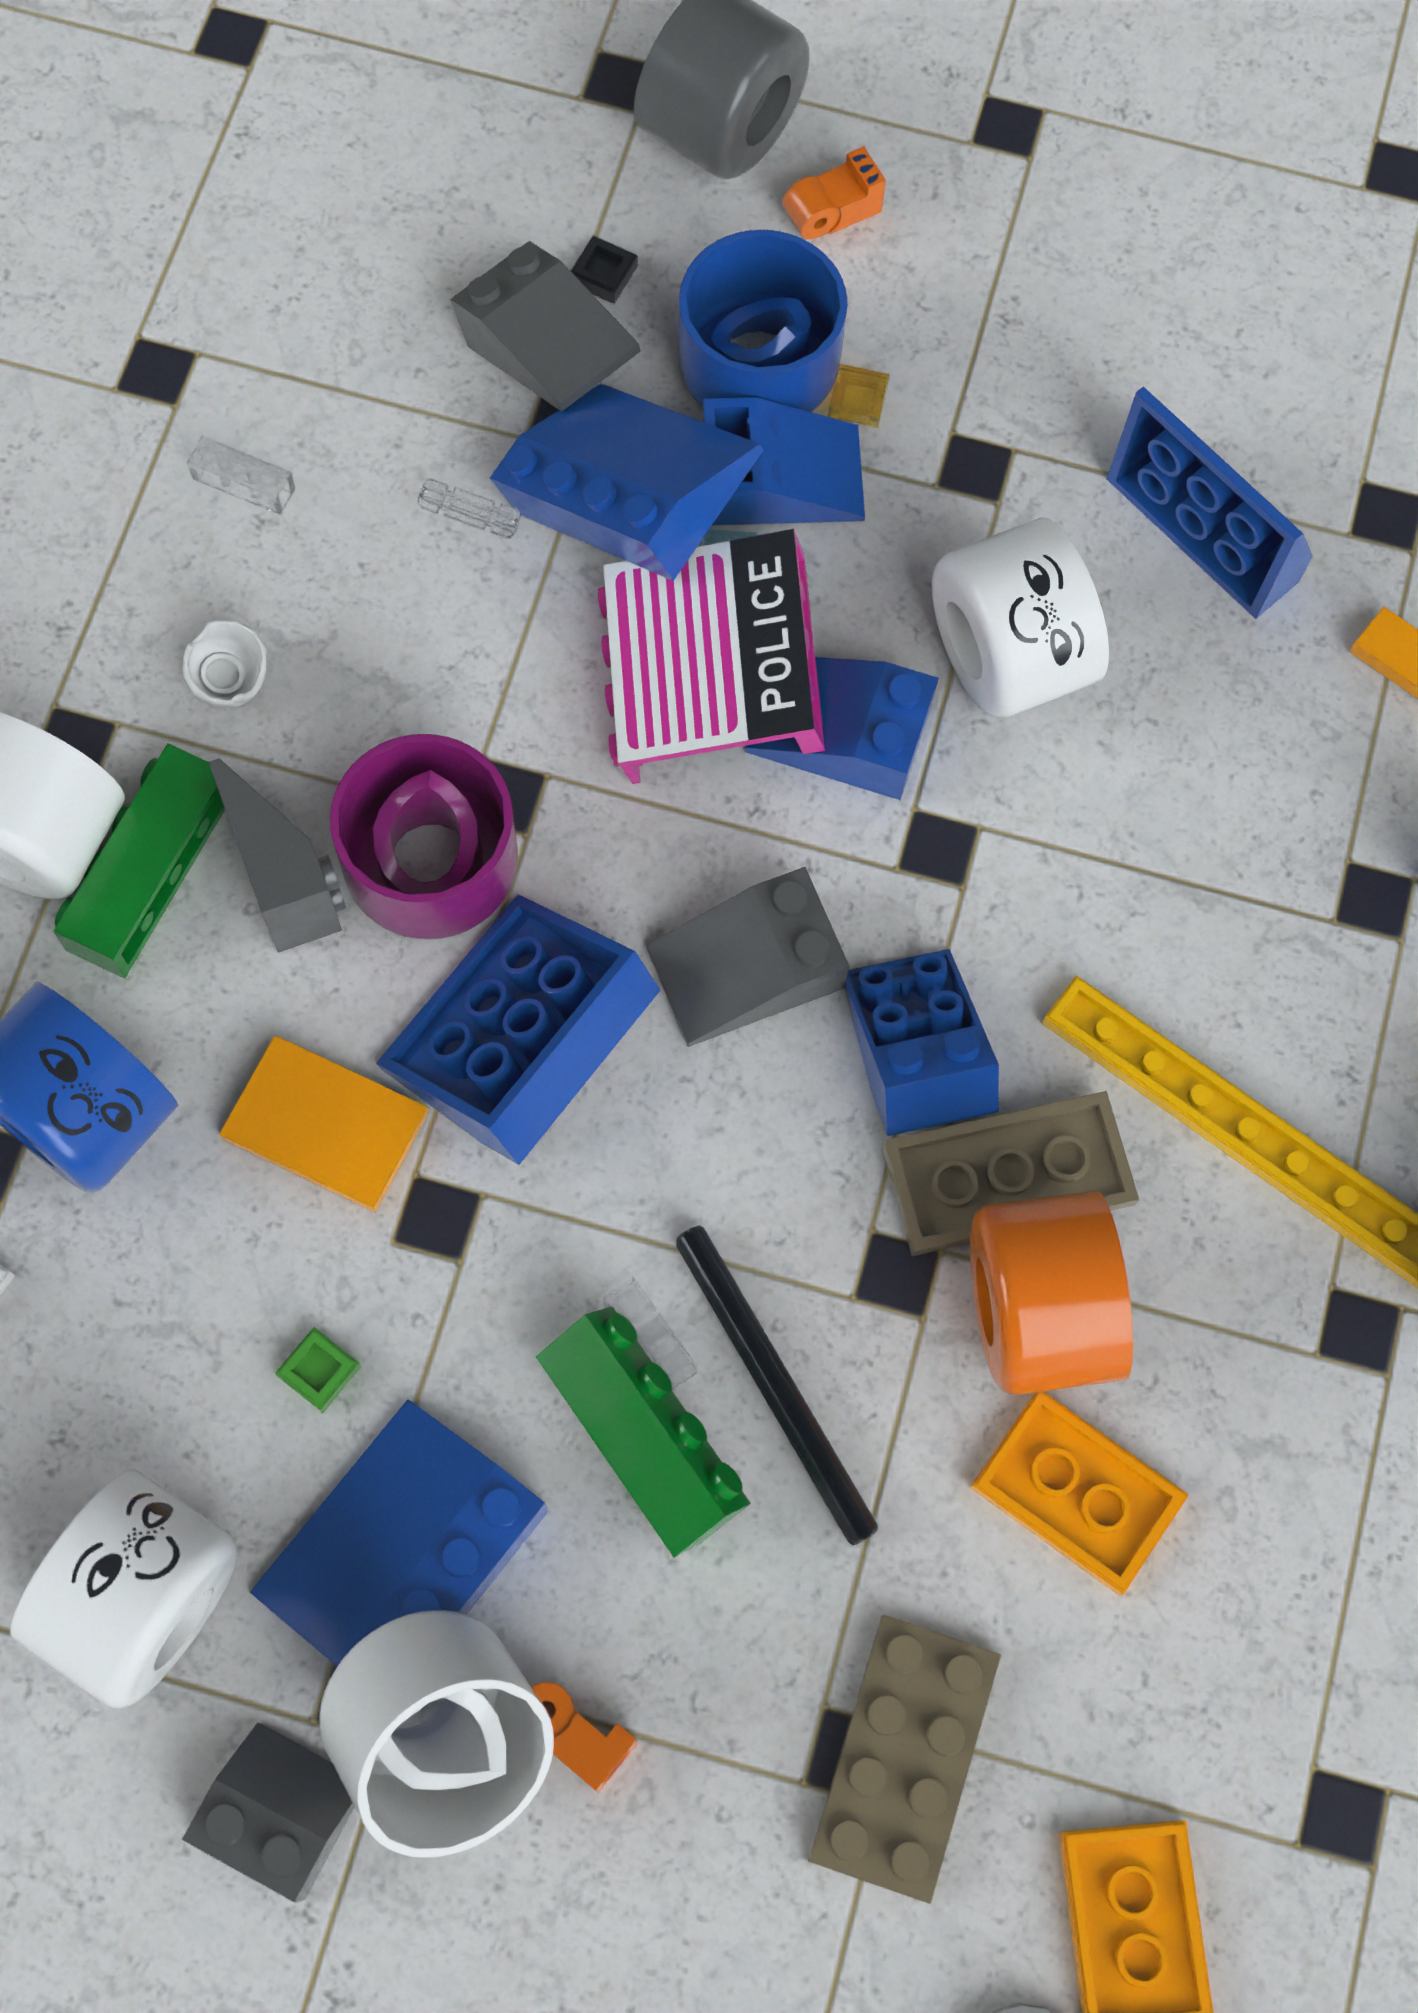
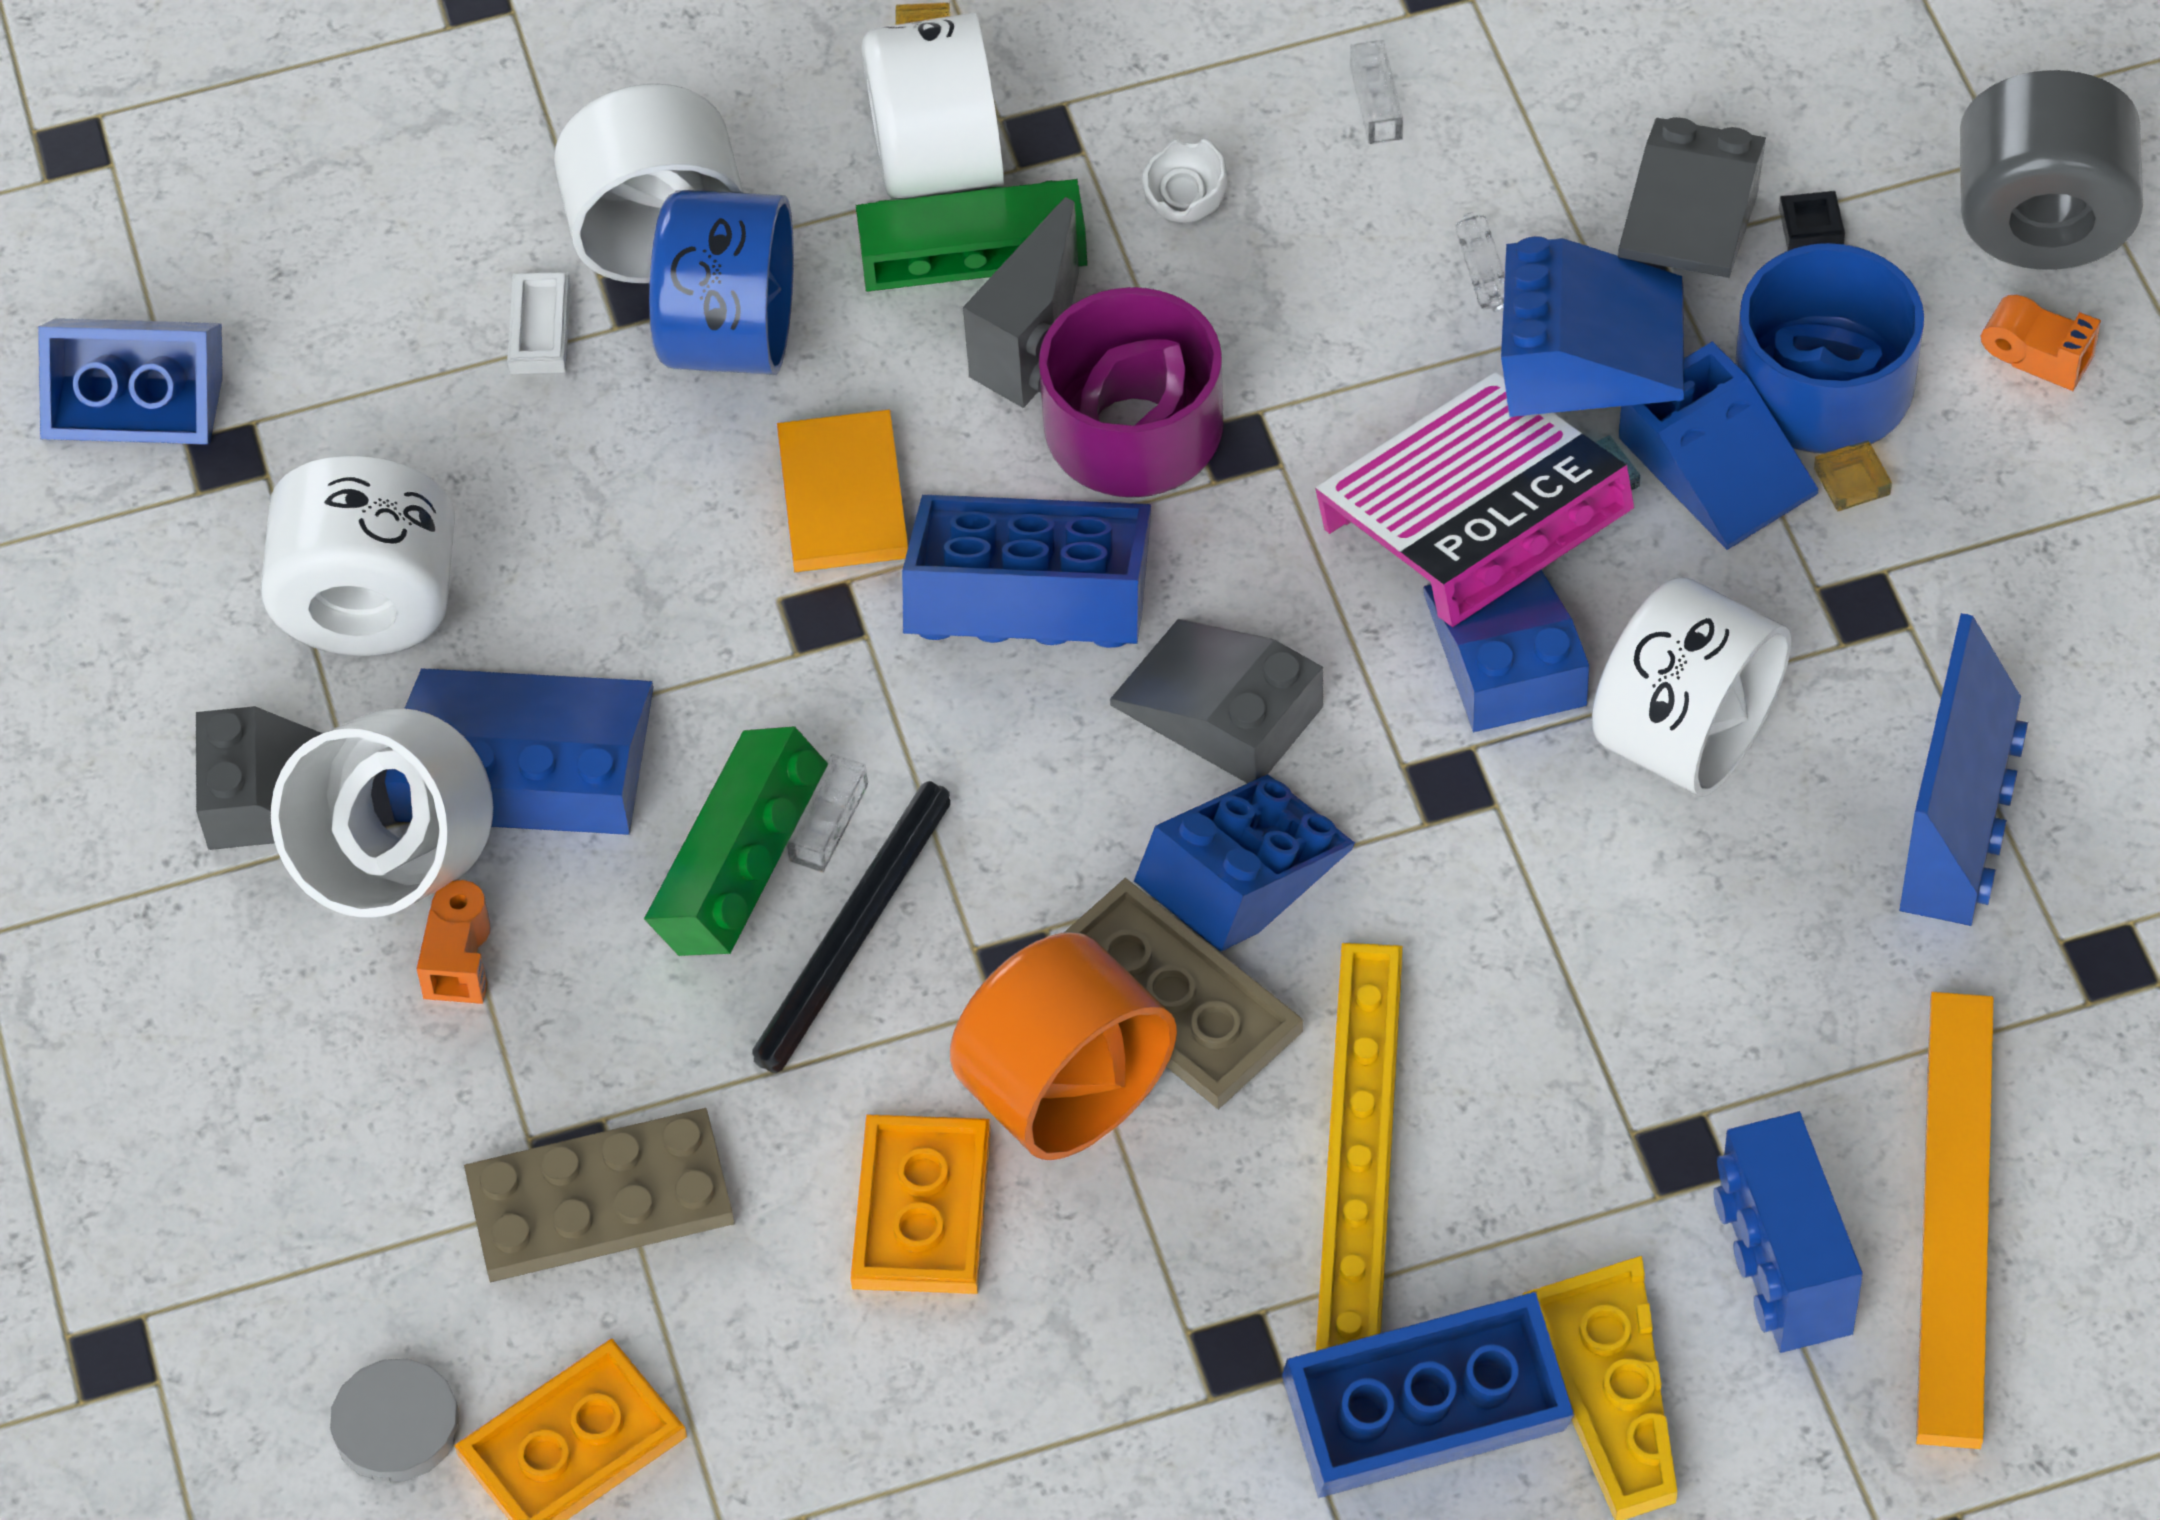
camera: 65 degrees right, 15 degrees down
(318, 1370) = (632, 608): bright green tile -> none

